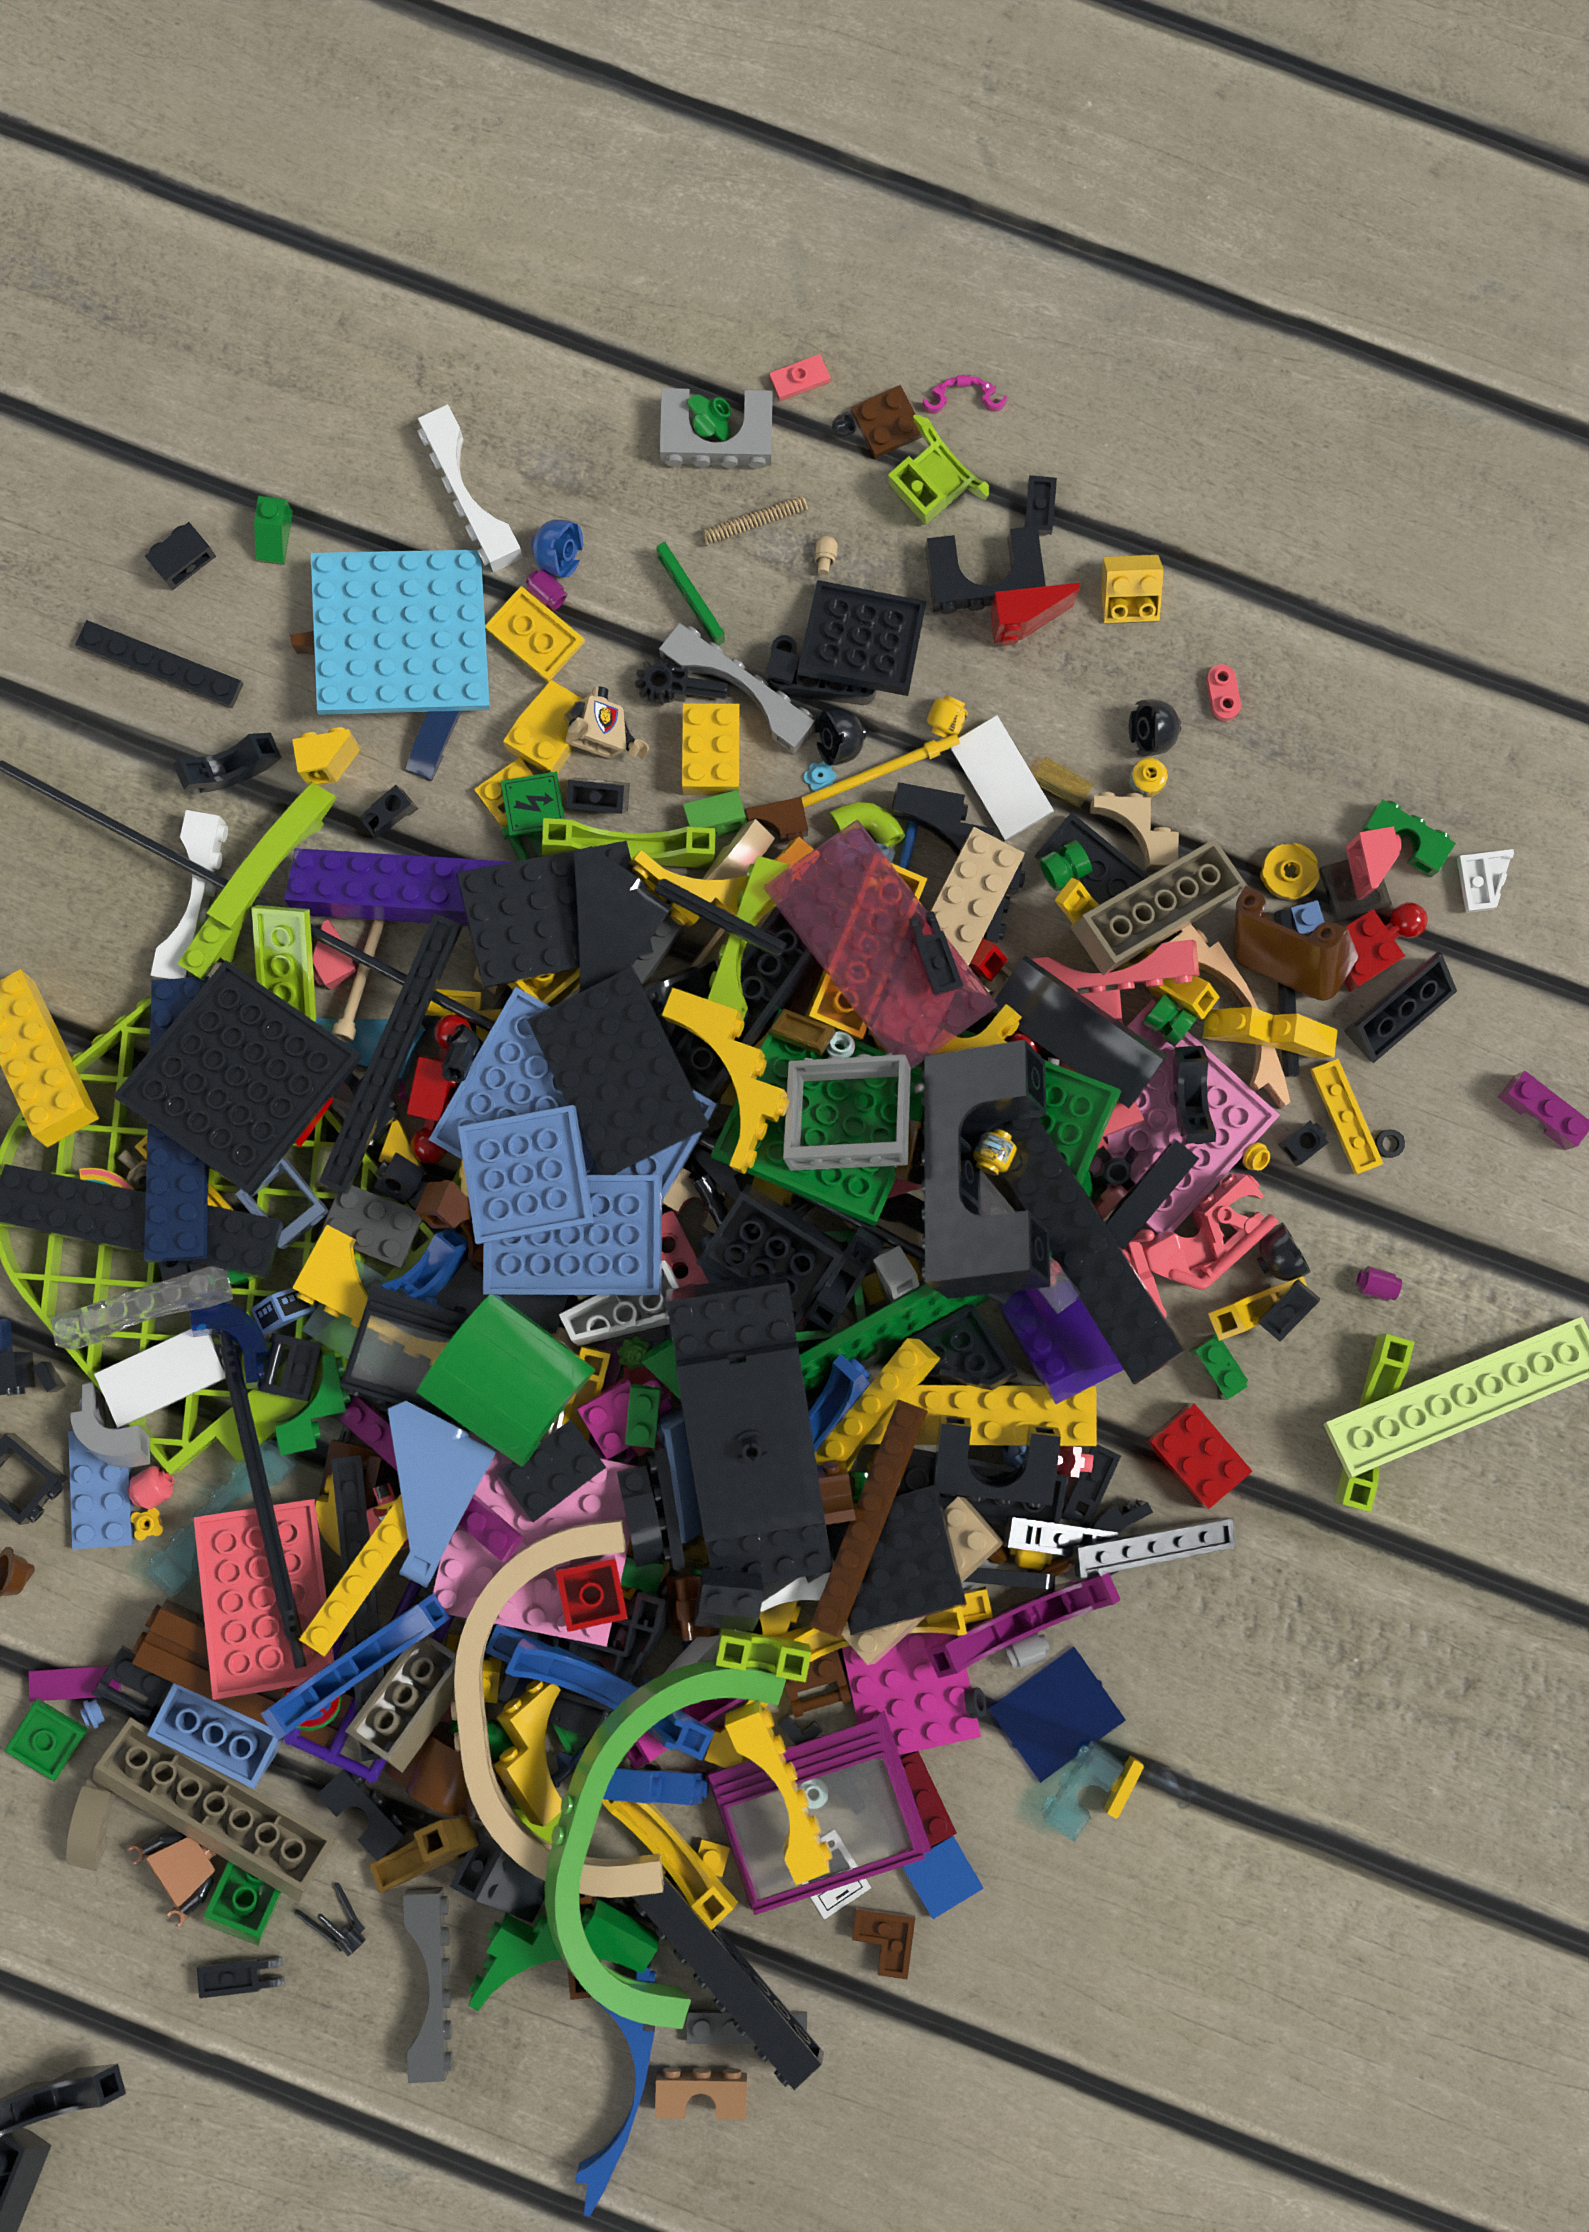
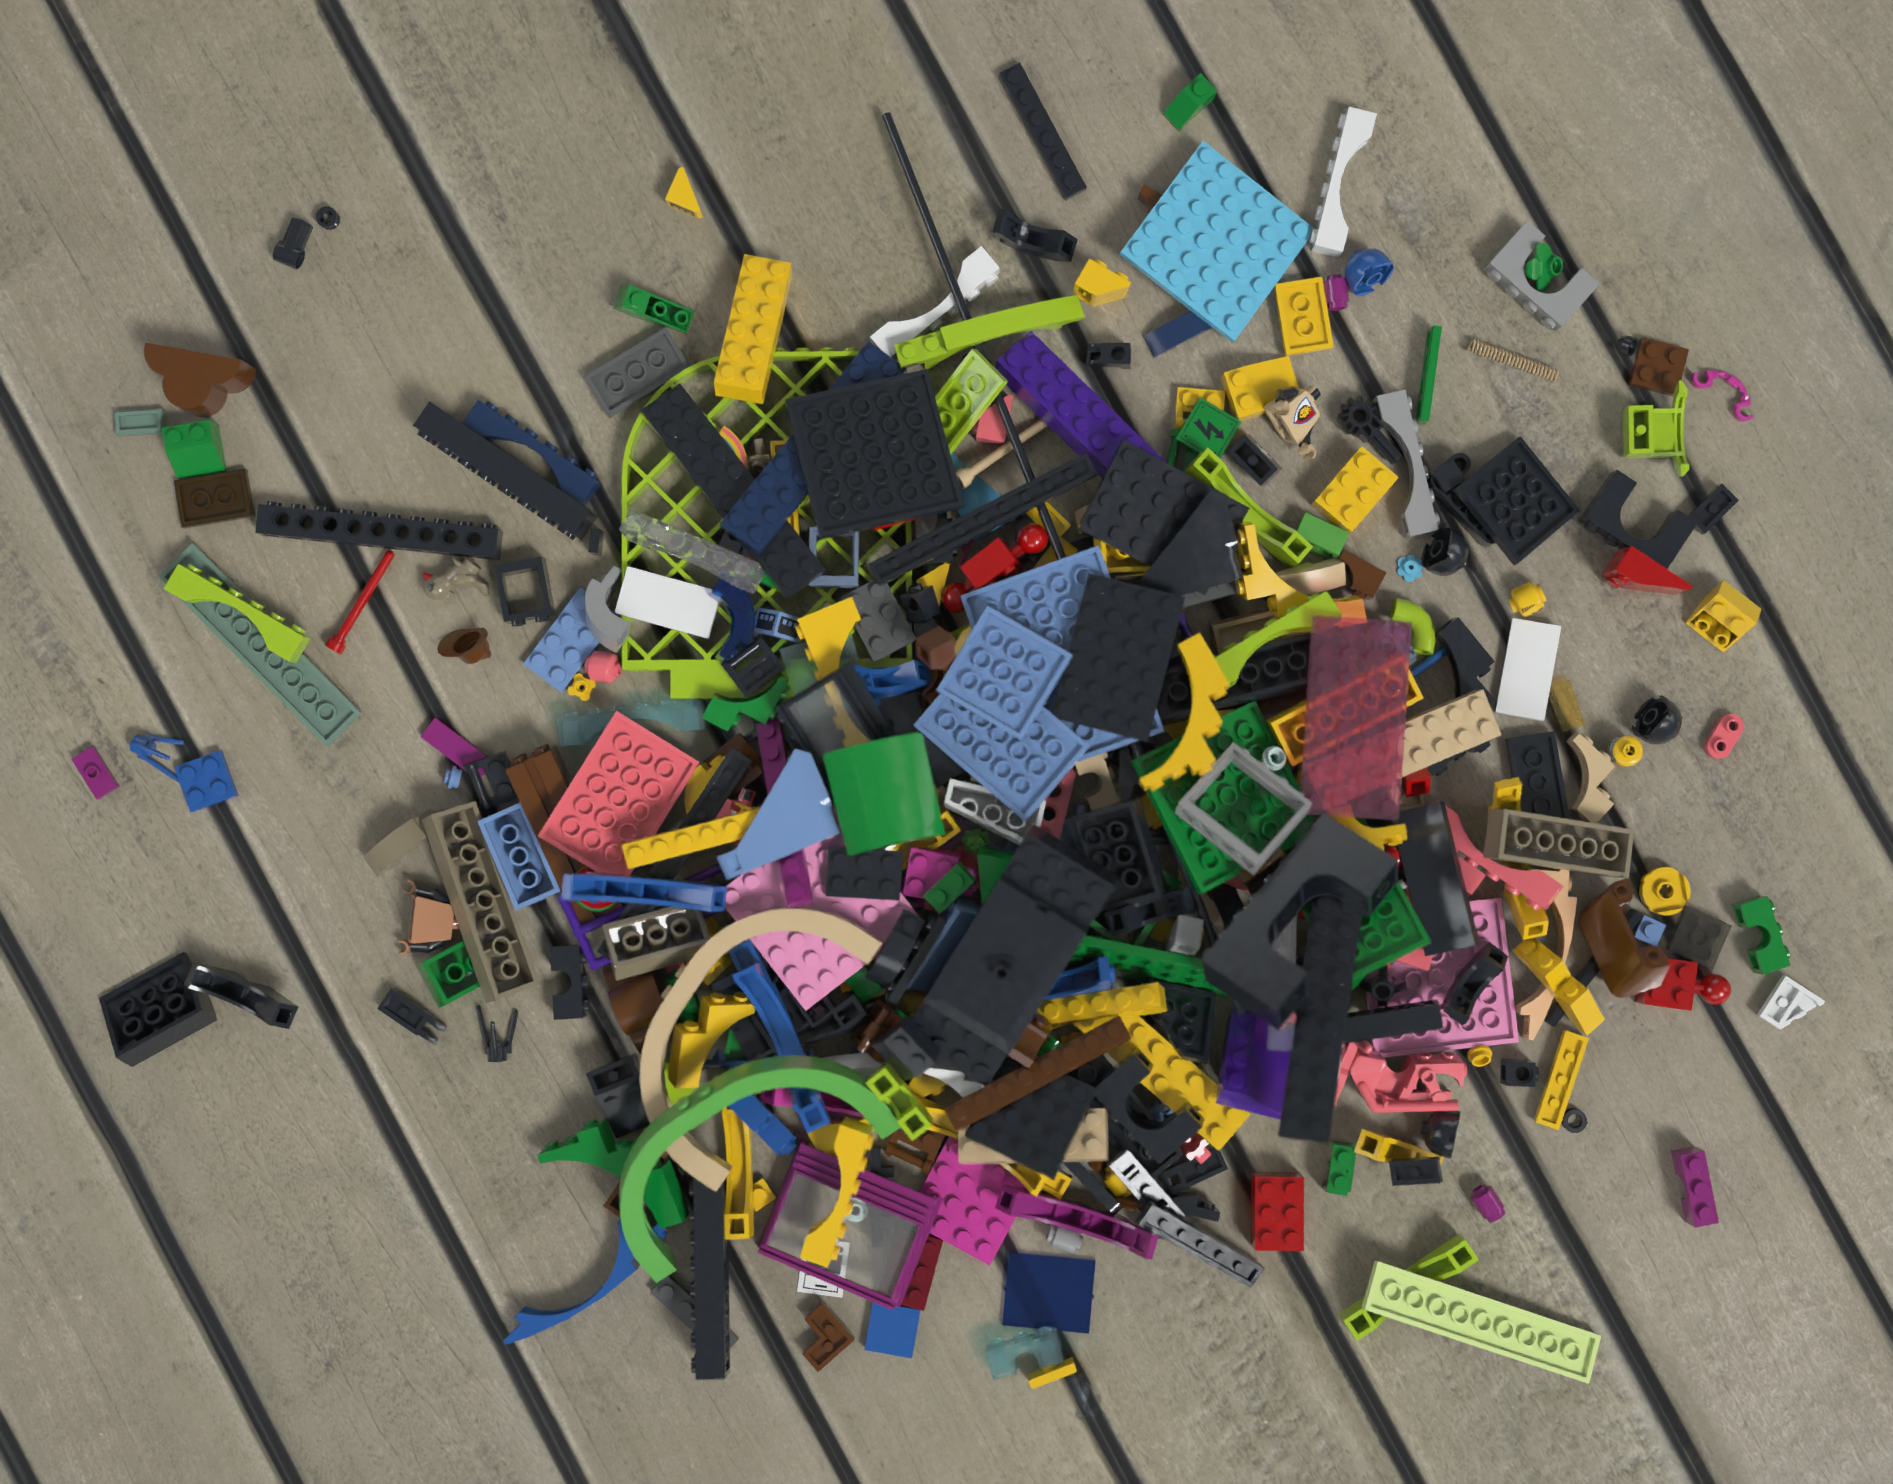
camera: 45 degrees right, 5 degrees up
(46, 1739) = (411, 769): green tile -> none
(180, 555) = (1116, 69): black brick -> none
(262, 1498) = (669, 734): black axle -> none
(424, 1919) = (552, 1079): dark grey arch -> none
(430, 1850) = (594, 1042): pearl gold arch -> none
(461, 1053) = (1031, 557): black piece -> none
(591, 1593) = (825, 971): red brick -> none
(691, 980) = (1213, 633): black arch -> none
(712, 1200) = (1107, 786): black pin -> none
(720, 917) = (1268, 612): black axle -> none
(725, 2088) = (620, 1315): medium nougat arch -> none
(799, 377) = (1625, 288): coral plate -> none
(802, 1031) = (1257, 729): pearl gold tile -> none
(825, 553) = (1540, 422): tan cylinder -> none
(931, 749) = (1498, 612): yellow bar -> none
(936, 956) = (1386, 755): black hinge -> none
(975, 1702) = (1003, 1241): black piece -> none
(994, 1152) = (1315, 913): head -> none
(1062, 866) = (1522, 764): green wheel -> none
(1110, 1200) = (1363, 1002): coral plate -> none
(1169, 1020) = (1500, 921): green wheel -> none
(1371, 858) = (1725, 930): coral slope -> none
(1402, 1008) = (1660, 1041): black slope -> none

